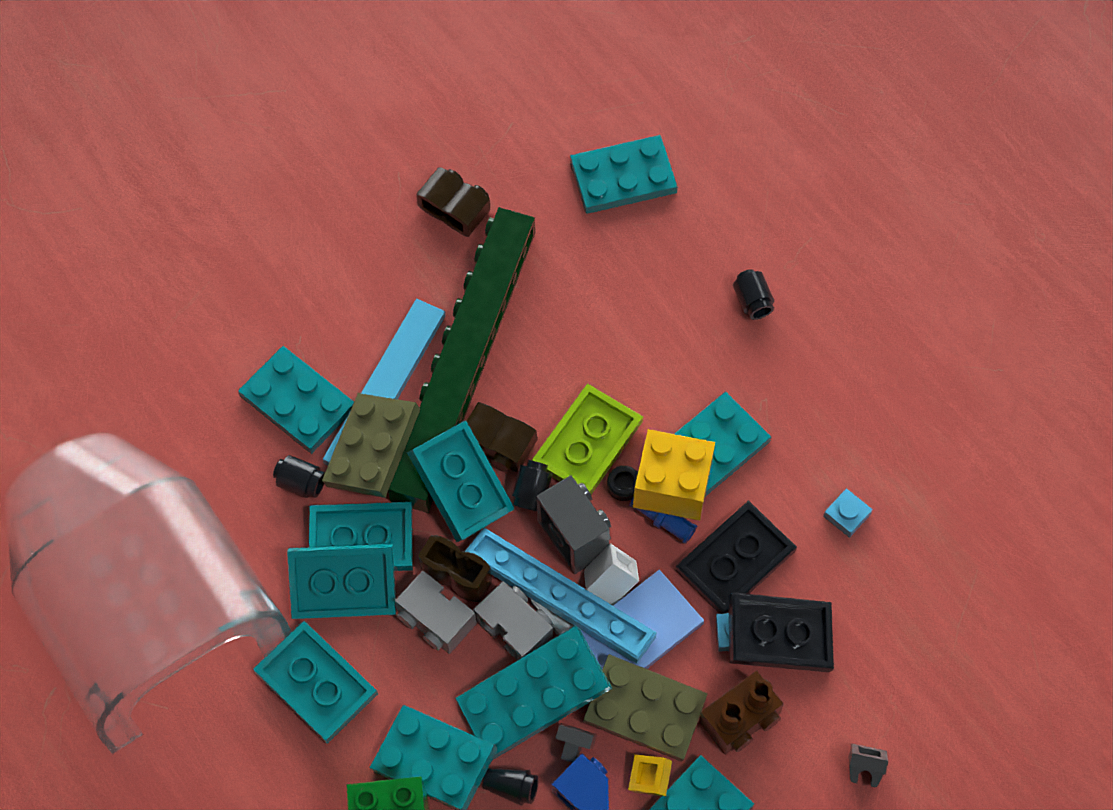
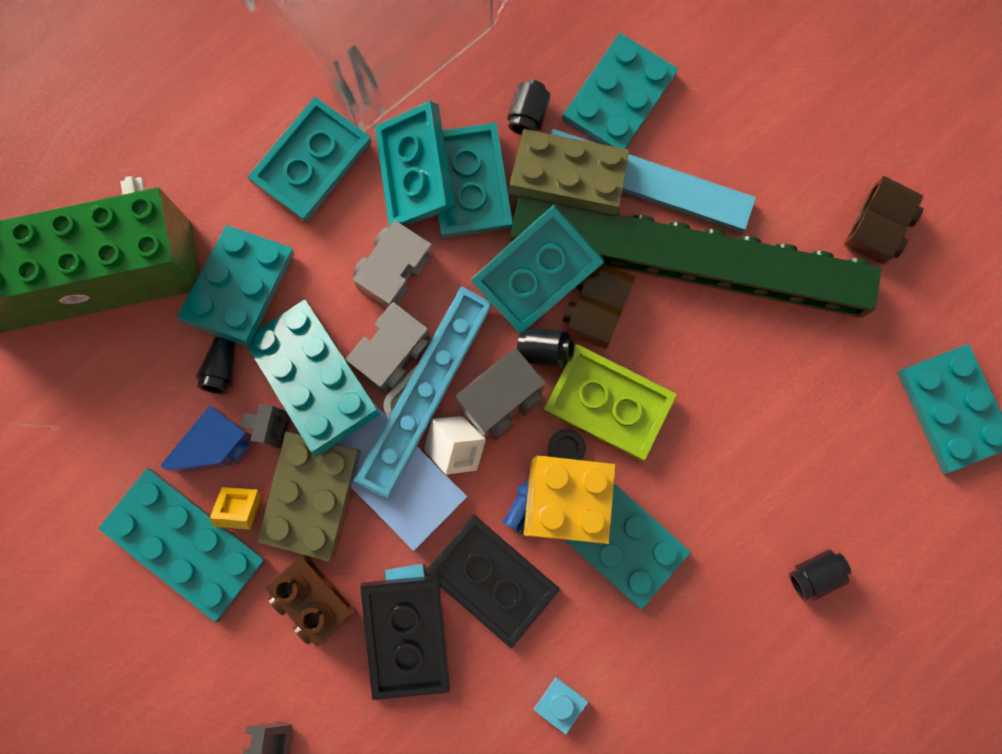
camera: 80 degrees right, 15 degrees up
(463, 571) = (444, 270): dark brown brick -> none

